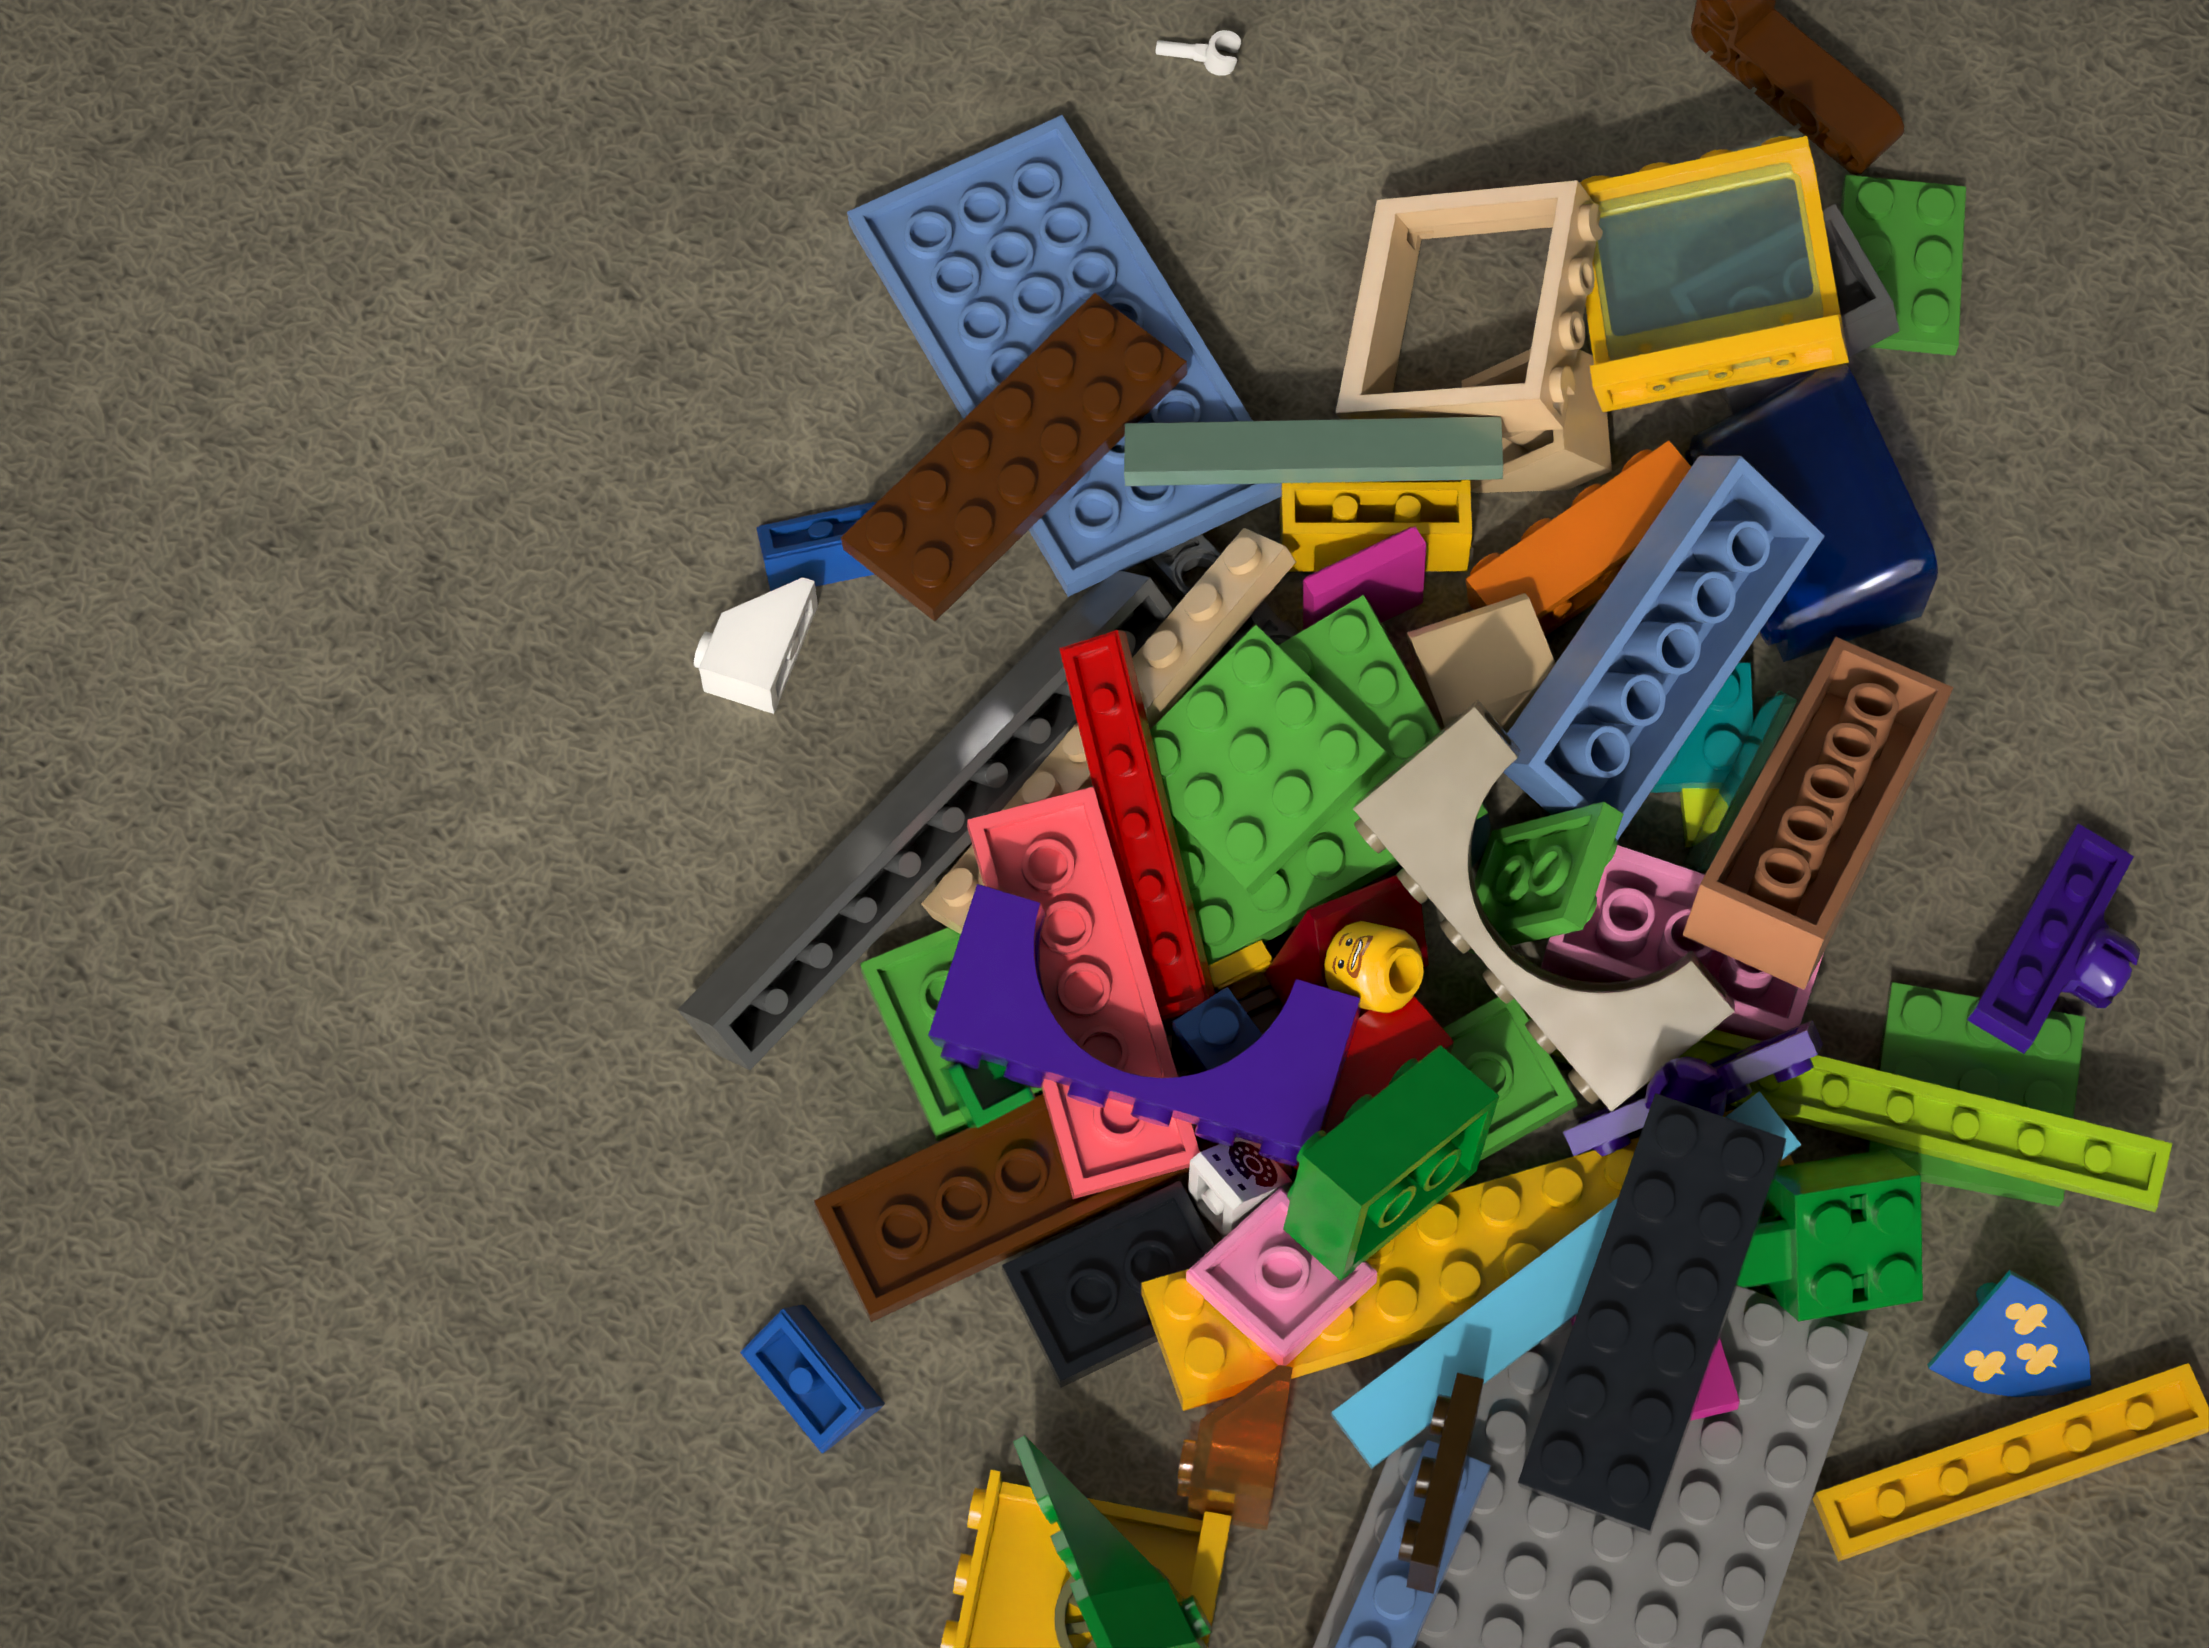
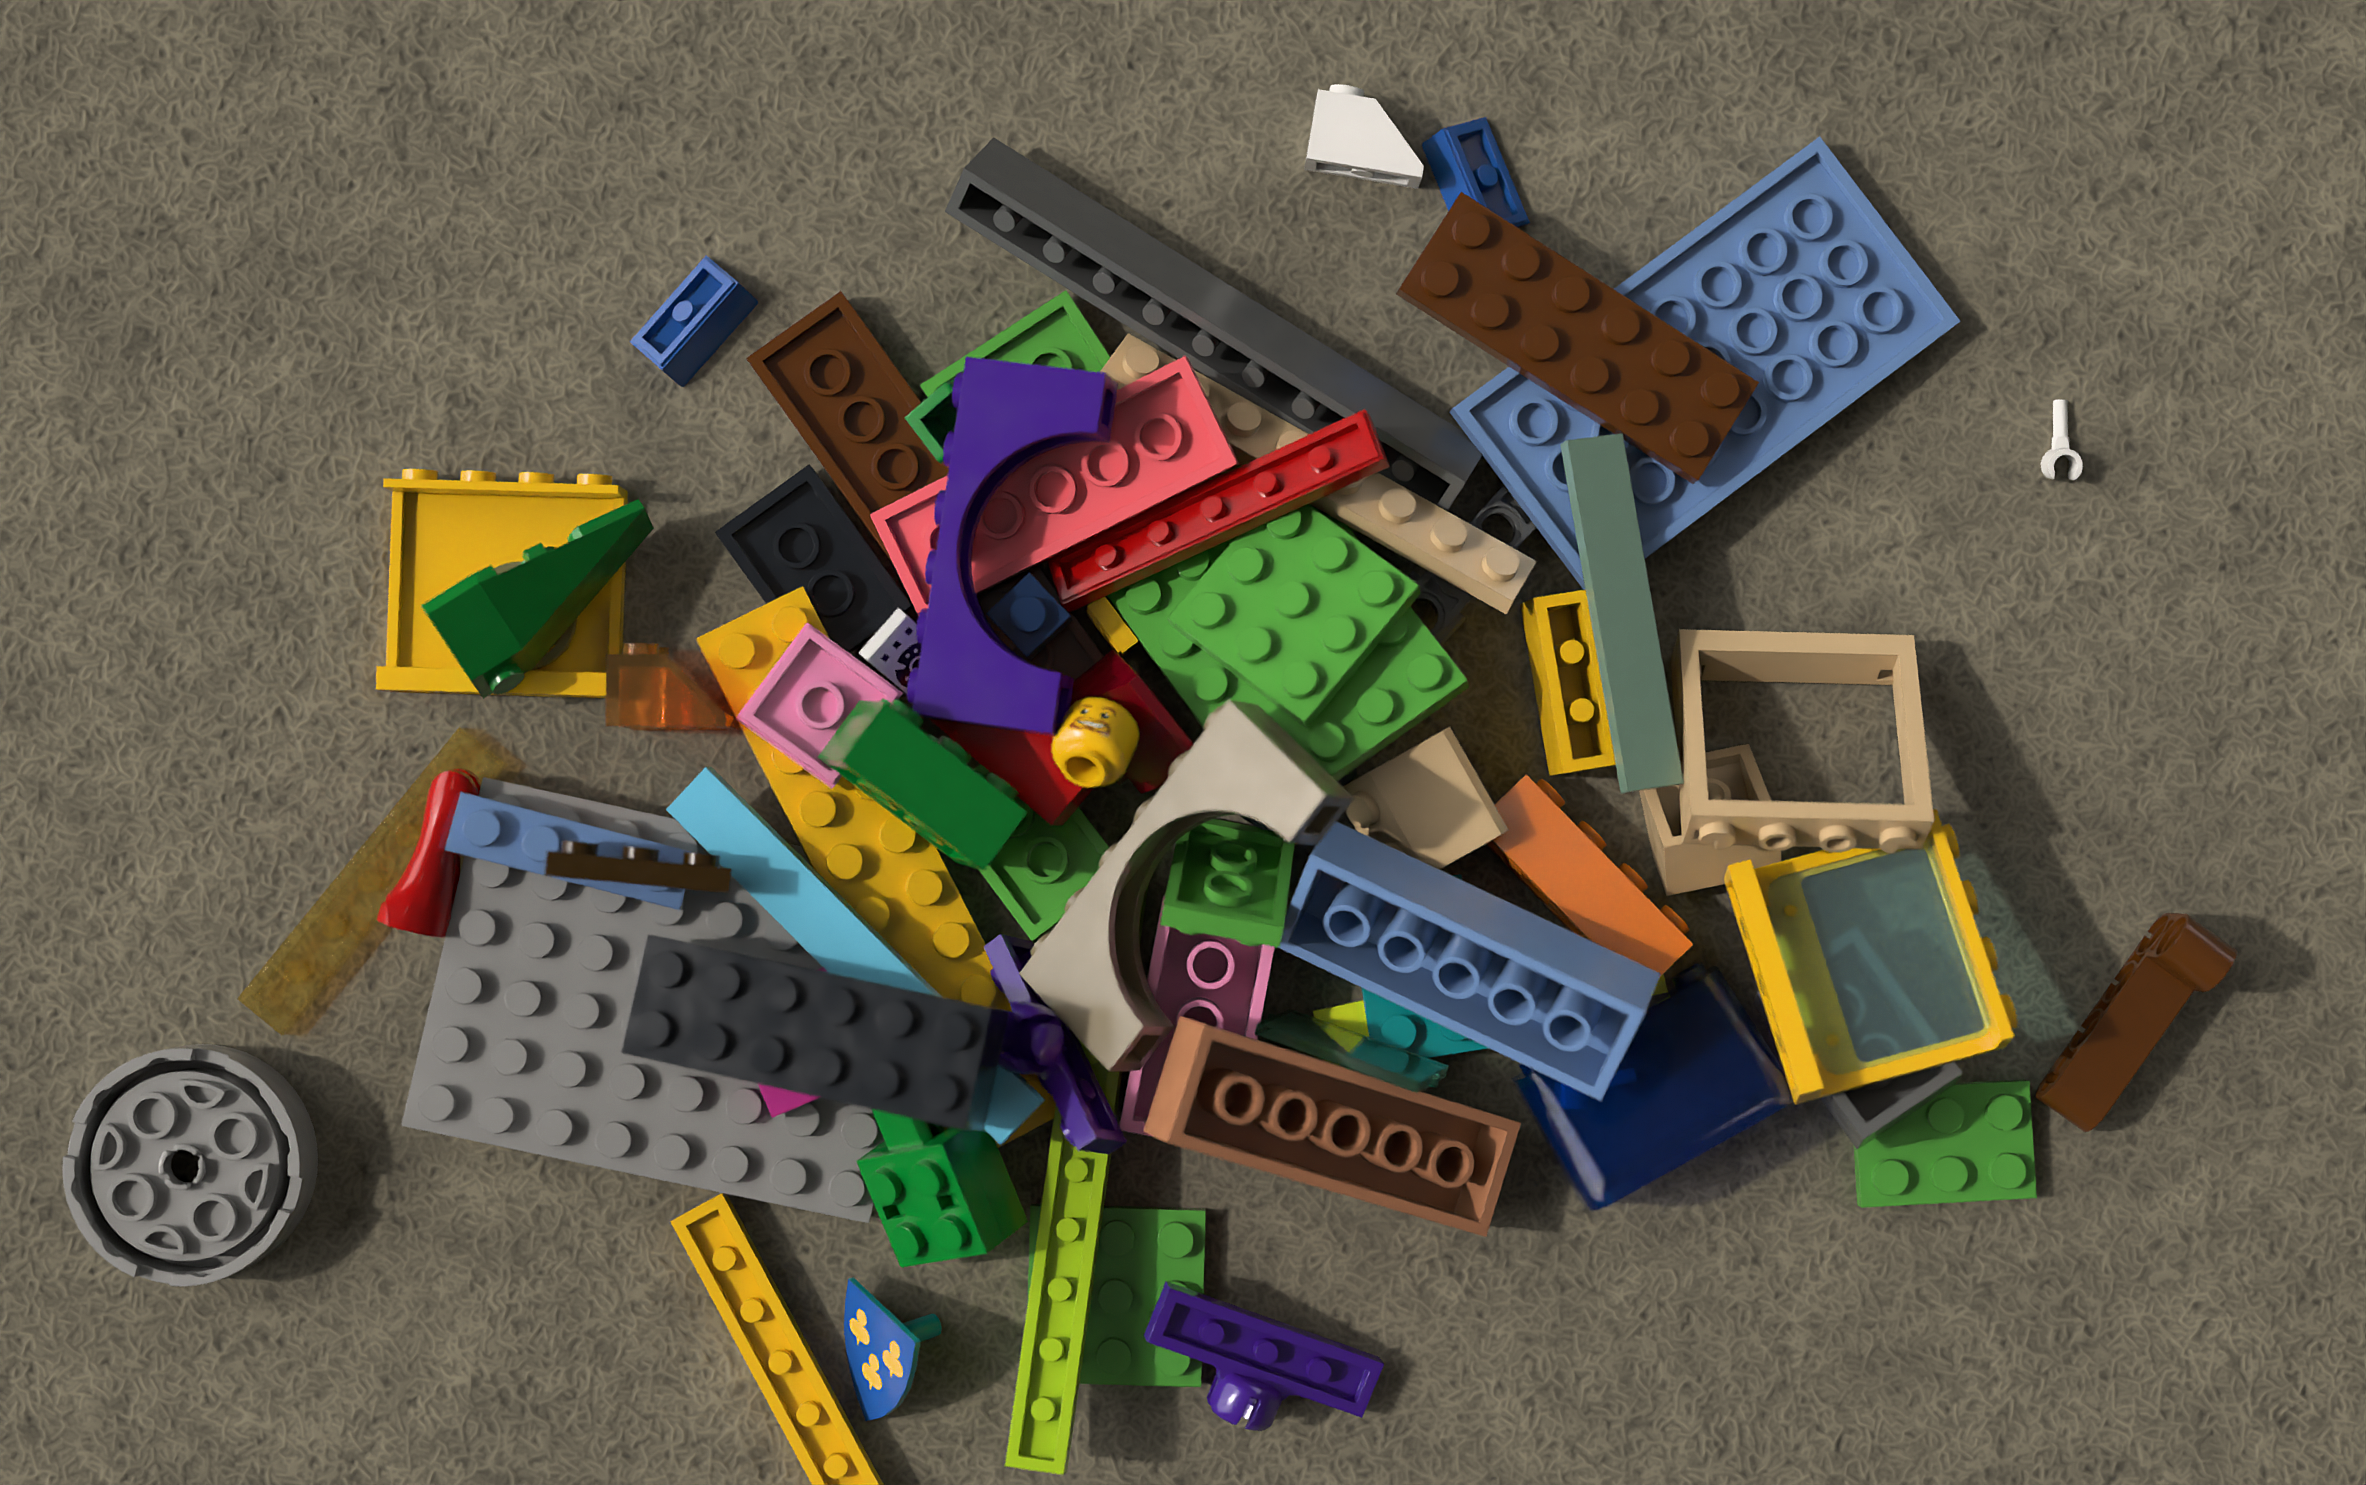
camera: 80 degrees right, 20 degrees up
(1385, 573) = (1498, 681): dark pink tile -> none

